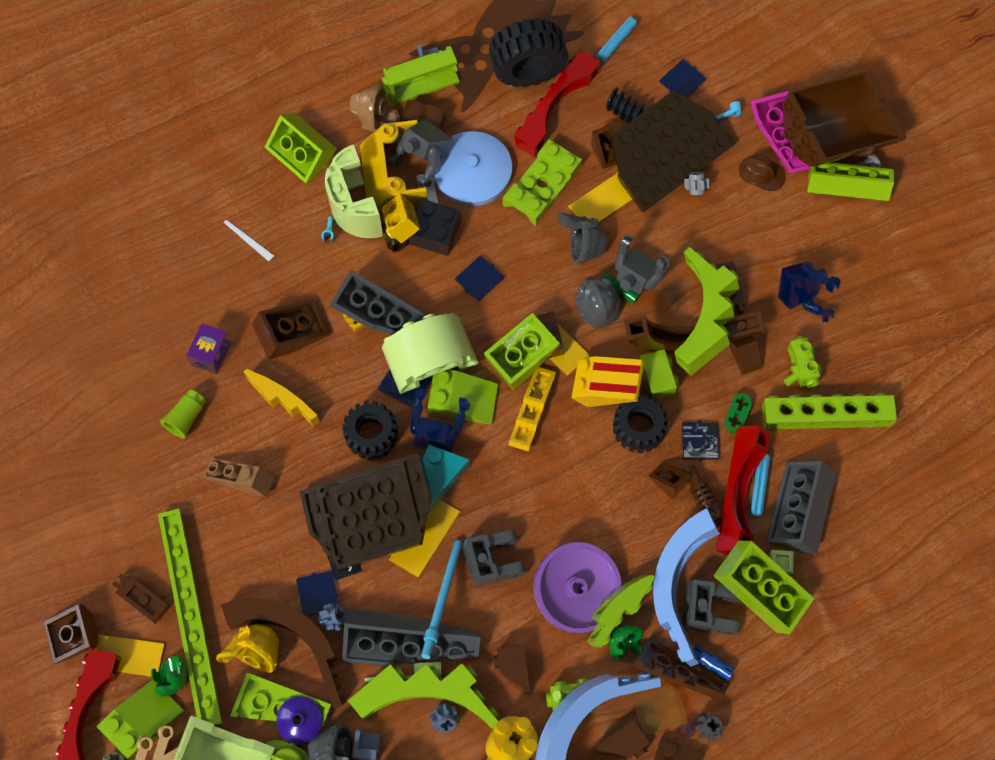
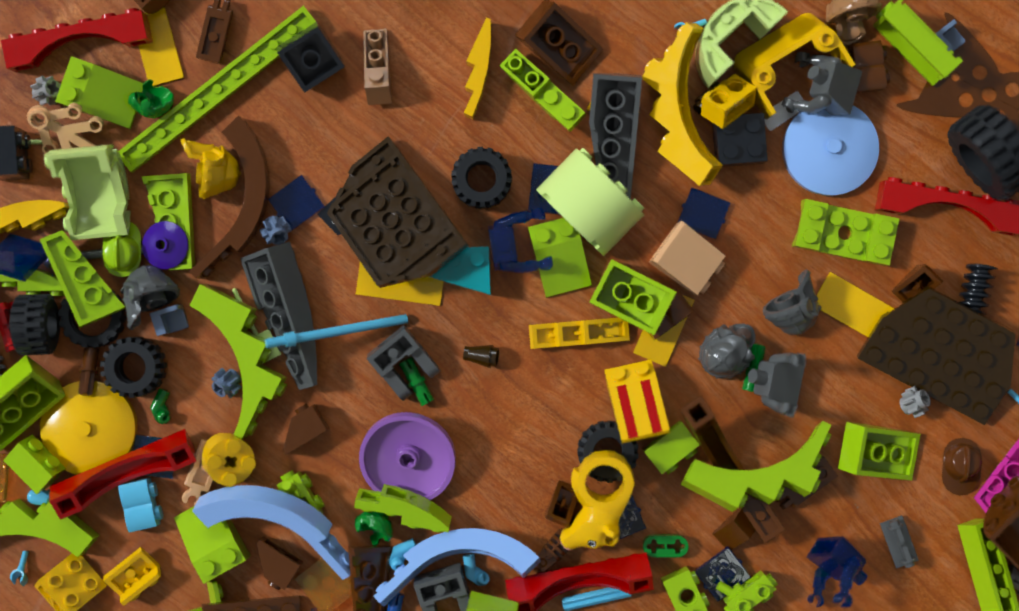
camera: 60 degrees right, 20 degrees up
(203, 523) = (310, 57): none -> black brick
(322, 357) = (542, 90): none -> lime slope
(386, 264) = (670, 78): none -> yellow arch
(509, 300) = (688, 259): none -> light nougat slope
(515, 555) = (416, 381): none -> green pin
(517, 491) = (483, 355): none -> dark brown cone
(657, 633) = (396, 558): none -> medium azure arm
(694, 448) = (599, 518): none -> yellow animal
(704, 574) = (473, 572): none -> medium azure arm
(724, 224) = (878, 451): none -> lime slope
(773, 377) = (723, 568): none -> piece
(804, 238) = (899, 542): none -> dark grey hinge

